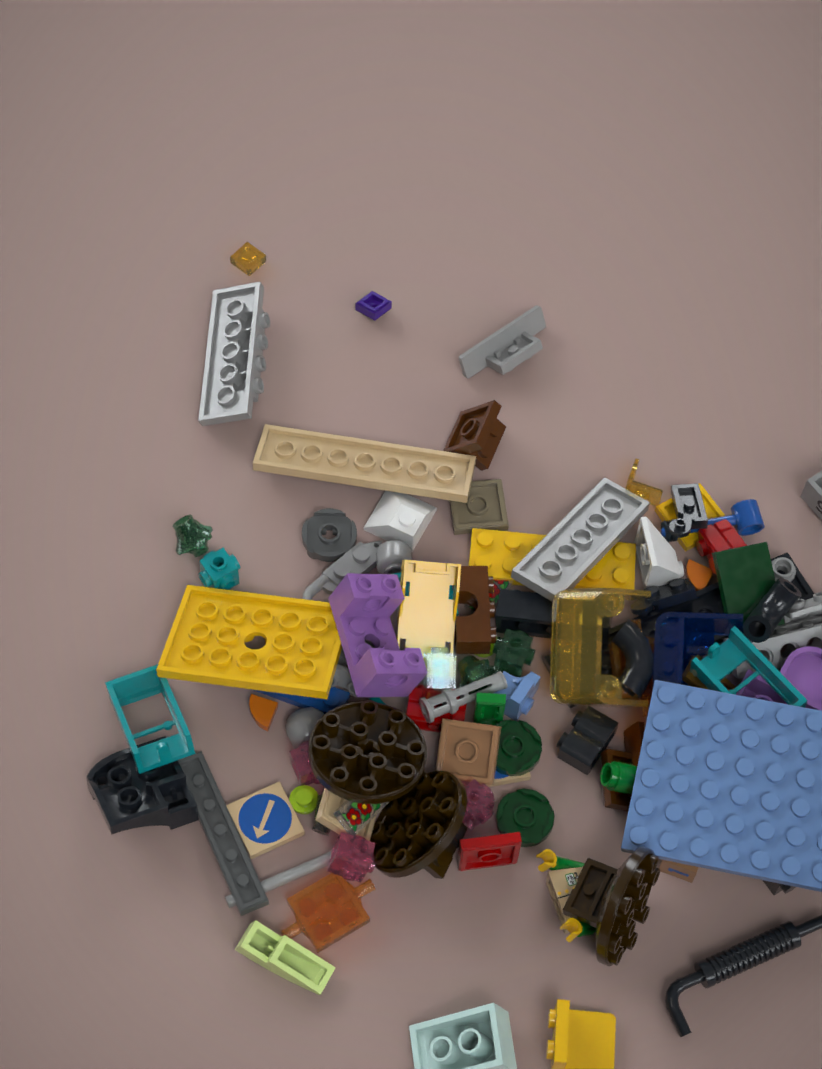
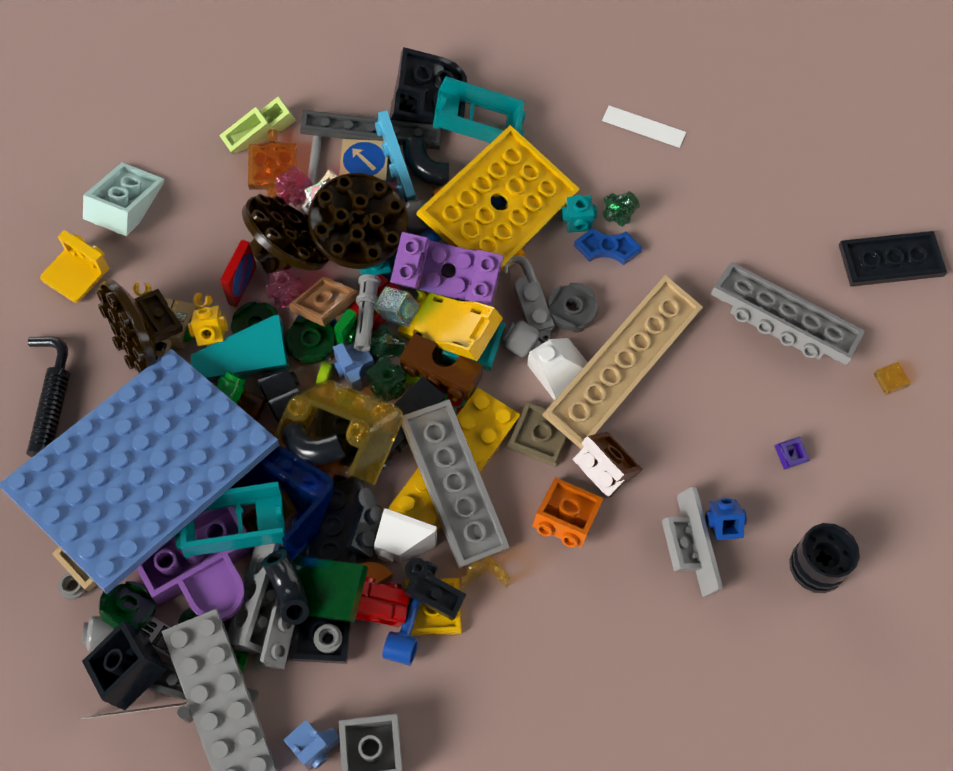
camera: 120 degrees right, 5 degrees up
(61, 569) = (644, 126): none -> white sticker
(113, 297) = (892, 258): none -> black tile
(232, 525) = (598, 245): none -> blue tile
(241, 752) = (422, 165): none -> black cylinder
(247, 780) = (392, 150): none -> medium azure plate
(464, 244) = (824, 558): none -> black wheel
(472, 325) = (726, 519): none -> blue brick
(540, 715) = (325, 372): none -> lime tile
(543, 446) = (567, 513): none -> orange plate
(570, 835) = (208, 326): none -> yellow brick
(571, 798) = (246, 353): none -> teal slope

